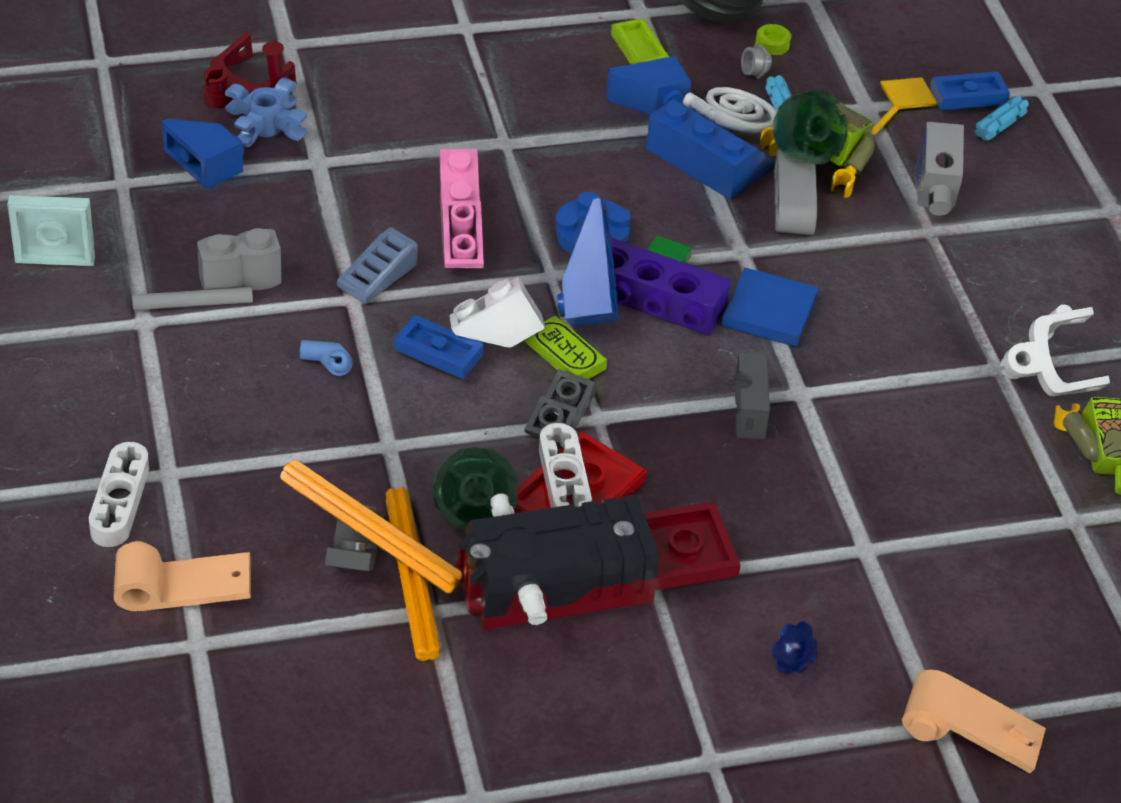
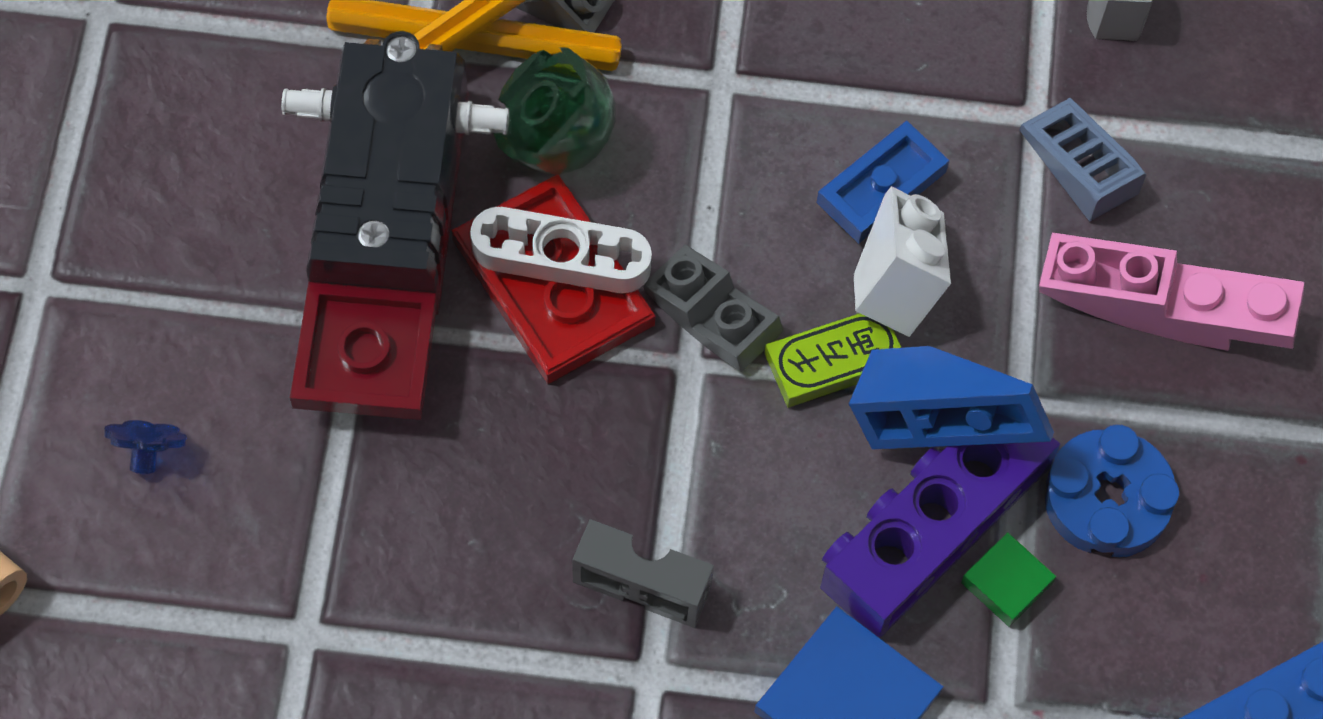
camera: 110 degrees right, 20 degrees up
(330, 354) = (912, 50): medium blue arm -> none

